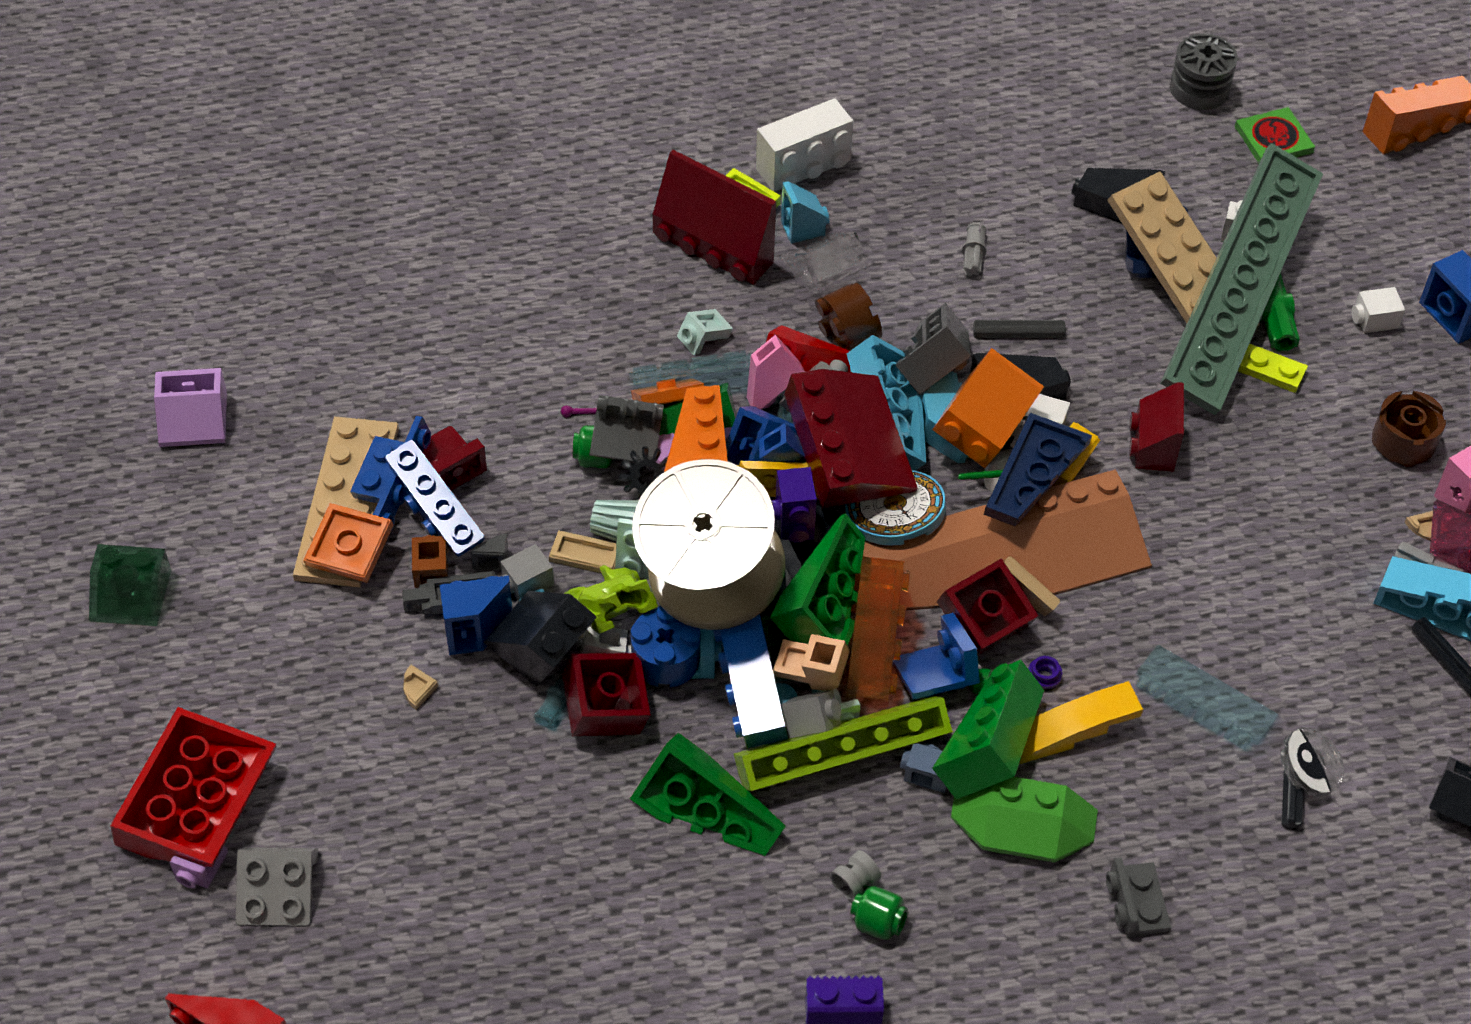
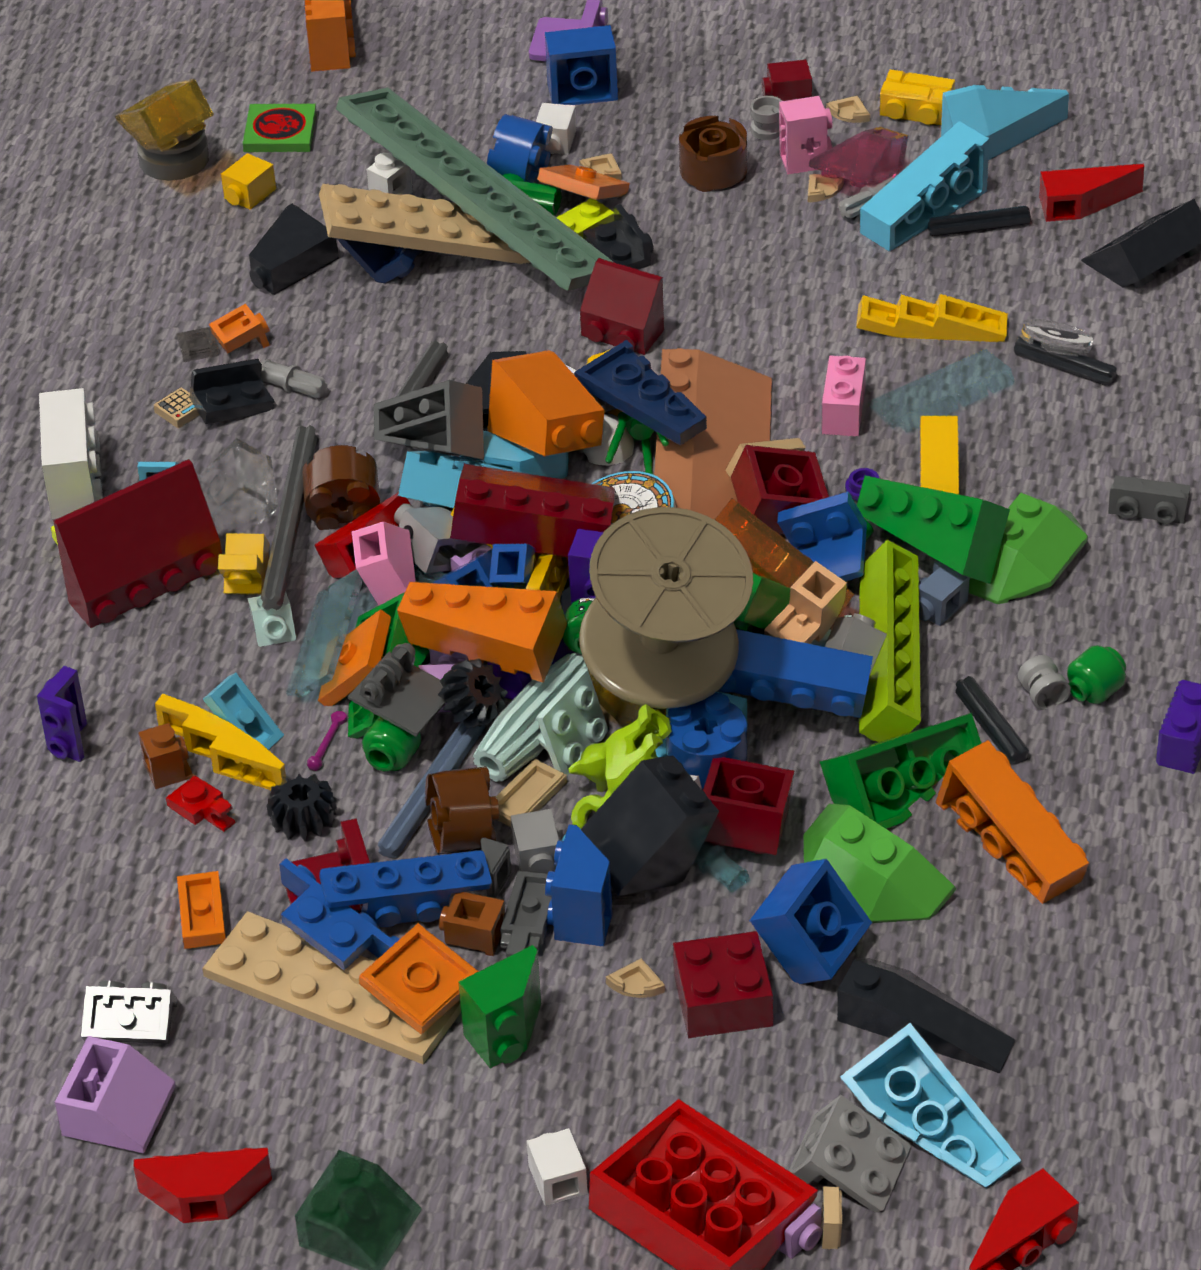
camera: 65 degrees left, 10 degrees down
(132, 488) = (203, 1183): none -> red slope
(207, 690) = (557, 1167): none -> white brick
(207, 887) = (831, 1217): none -> tan tile
(277, 389) = (128, 1013): none -> bracket
(336, 604) = (502, 1007): none -> green slope
(346, 916) = (924, 1102): none -> medium azure wedge
(390, 395) = (201, 909): none -> orange plate
(419, 741) = (723, 984): none -> dark red brick
(448, 880) = (890, 997): none -> black wedge
(489, 777) = (811, 921): none -> blue brick
(497, 357) = (200, 801): none -> red plate
(510, 416) = (301, 806): none -> black gear
(526, 318) = (164, 756): none -> dark orange brick
(531, 510) = (460, 809): none -> reddish brown brick
(533, 242) = (63, 714): none -> dark purple bracket
(552, 351) = (230, 748): none -> yellow slope
(559, 489) = (415, 807): none -> sand blue axle
(582, 348) = (237, 705): none -> medium azure slope
(587, 809) = (877, 866): none -> bright green wedge
(664, 895) = (1011, 822): none -> orange wedge
(747, 294) = (244, 563): none -> yellow brick
(799, 300) = (288, 520): none -> dark grey axle
(799, 850) = (991, 720): none -> black axle
(909, 195) = (176, 408): none -> tan tile
(933, 217) = (230, 391): none -> black bracket
(986, 180) = (197, 344): none -> clear smoke tile
(1009, 196) = (239, 328): none -> orange bracket
(1142, 621) = (843, 395): none -> bright pink brick
(1187, 139) = (248, 181): none -> yellow brick
(1190, 49) = (166, 115): none -> clear yellow slope
(1257, 404) = (622, 240): none -> black bracket
(1289, 661) = (944, 320): none -> yellow slope
(1317, 351) = (583, 181): none -> orange plate
(1321, 292) = (520, 147): none -> blue brick
(1356, 361) = (604, 165): none -> tan tile

